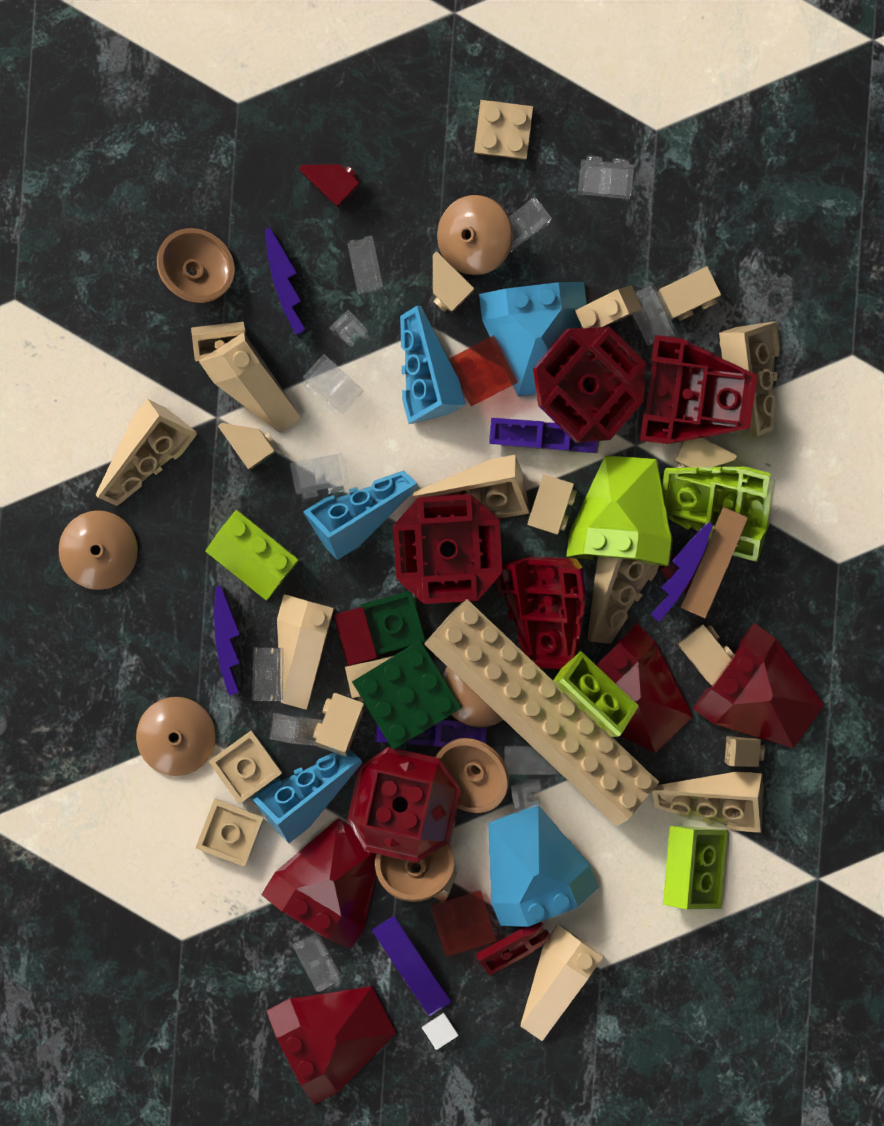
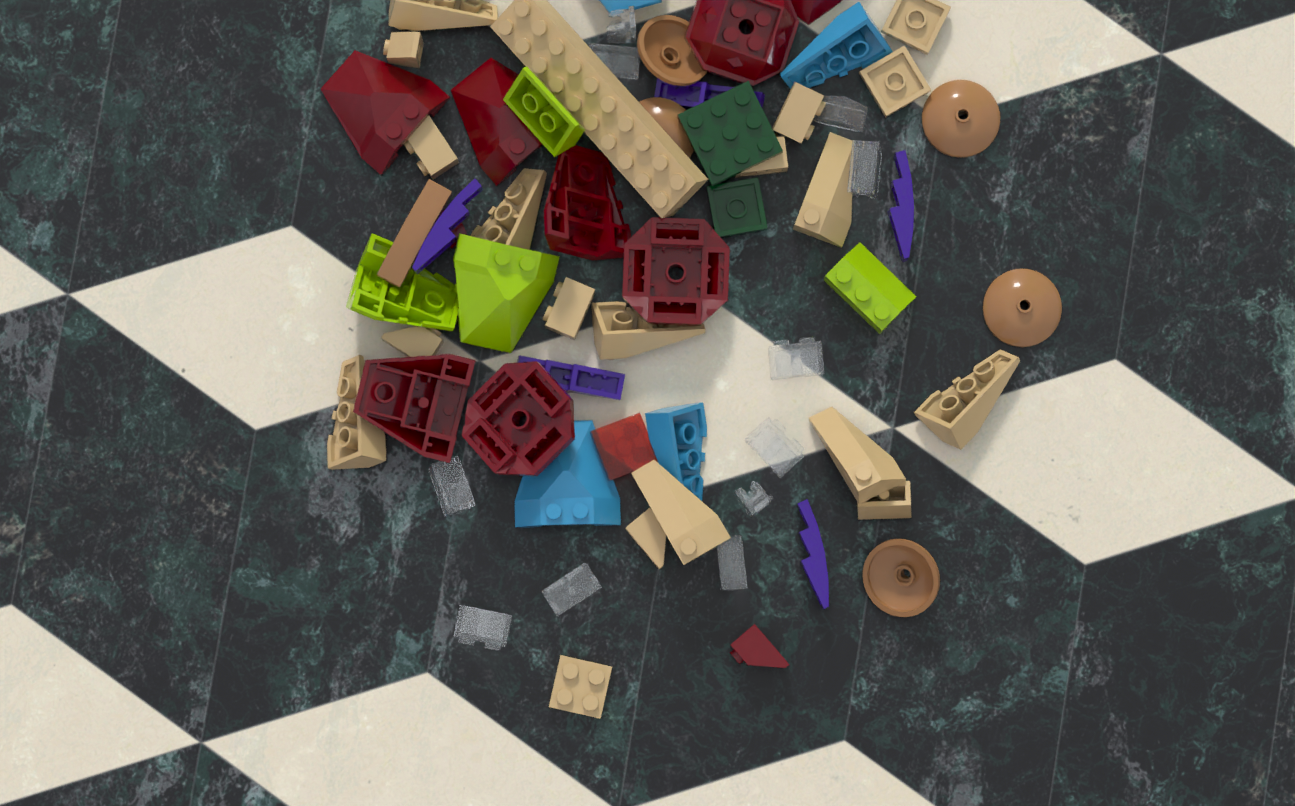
camera: 175 degrees left, 5 degrees down
(249, 443) = (863, 397): tan slope -> none
(352, 518) = (767, 314): dark azure wedge -> none
(354, 636) = (775, 198): dark red hinge -> none
(416, 301) = (682, 515): none -> tan wedge
(489, 238) = (604, 584): medium nougat dish -> none
(609, 308) = (492, 493): tan brick -> none
(690, 293) = (410, 503): tan brick -> none

